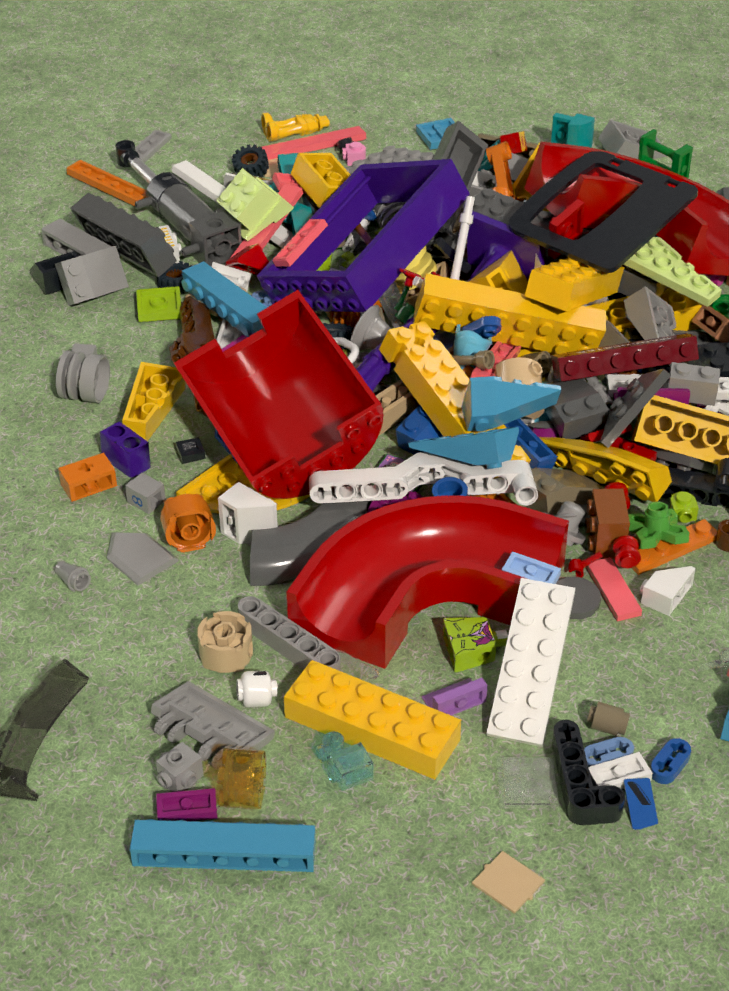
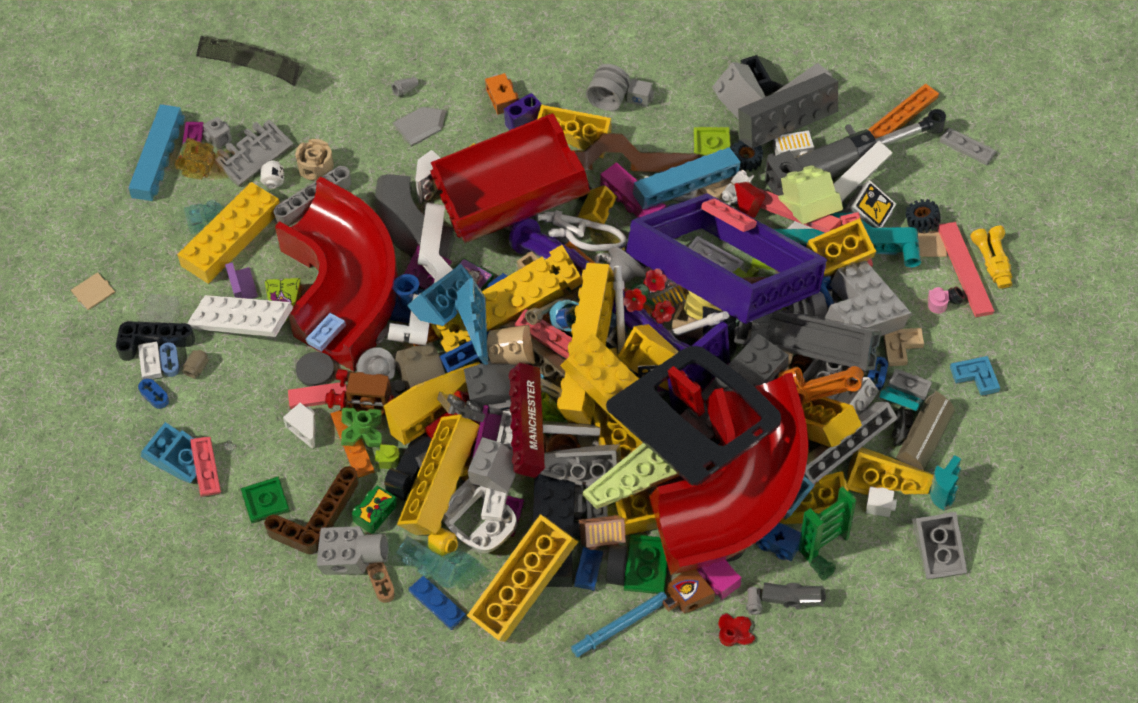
camera: 100 degrees right, 15 degrees up
(145, 493) = (476, 125): light grey brick -> none
(187, 522) = (433, 139): orange brick -> none
(516, 141) = (910, 414): red brick -> none
(640, 803) = (125, 368): blue sticker -> none

